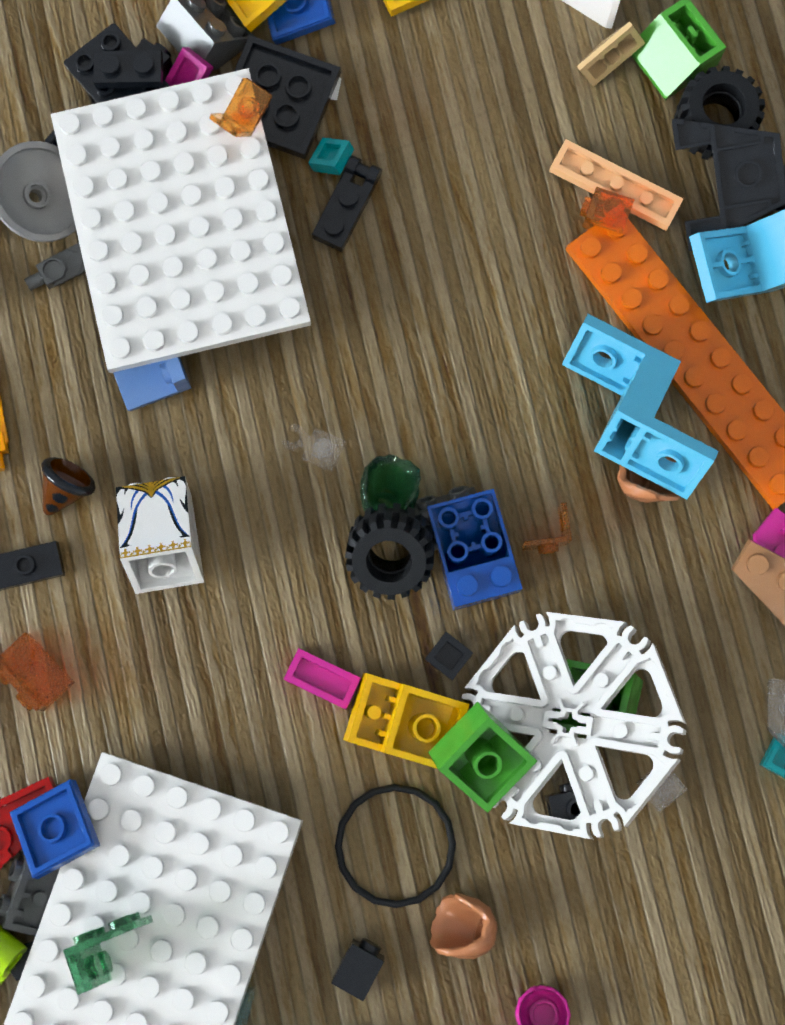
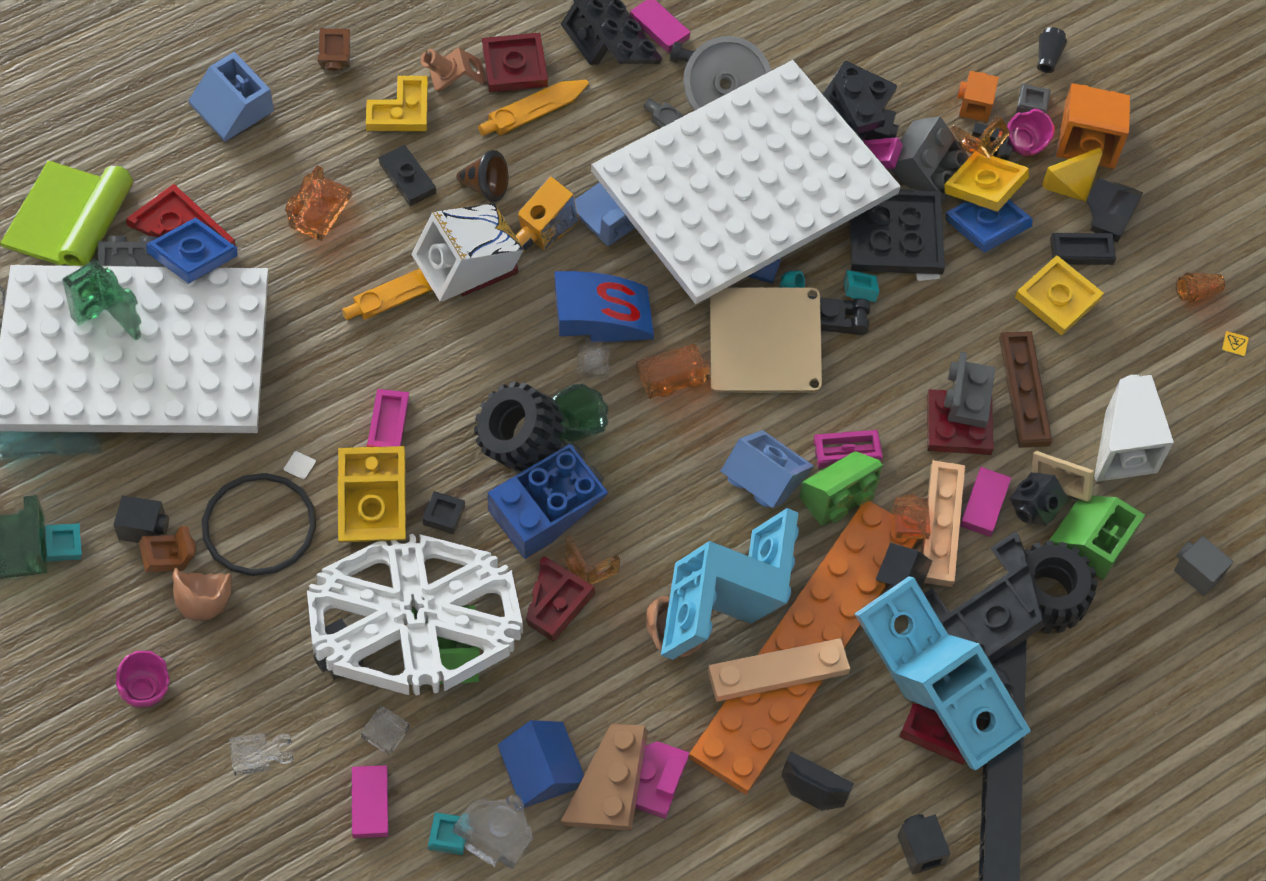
camera: 65 degrees right, 20 degrees down
(134, 428) = (547, 215): none -> light orange torso
(170, 633) = (388, 295): none -> light orange piece
(244, 109) = (855, 187): clear orange bracket -> none
(268, 419) = (602, 307): none -> blue slope
(303, 220) = (792, 279): none -> teal hinge
(339, 784) = (299, 465): none -> white sticker
(361, 375) = (673, 371): none -> clear orange bracket
(362, 272) = (765, 340): none -> tan piece
(403, 950) = (167, 551): none -> dark orange bracket
(482, 757) = (358, 550): bright green slope -> none
(493, 100) = (971, 392): none -> dark grey bracket
(494, 49) = (1025, 389): none -> reddish brown tile
(498, 267) = (830, 455): none -> dark pink tile
(505, 324) = (765, 468): none -> medium blue slope
(510, 125) = (954, 436): none -> dark red plate
(553, 261) = (841, 487): none -> bright green slope
(578, 577) = (556, 599): none -> dark red wing
(602, 135) = (985, 501): none -> dark pink tile
(625, 86) = (1038, 498): none -> black brick
(650, 923) = (253, 753): none -> clear plate
(662, 240) = (901, 563): none -> black brick
(727, 392) = (778, 669): none -> light nougat plate
(730, 823) = (370, 801): none -> dark pink tile
(742, 647) = (541, 761): none -> blue slope

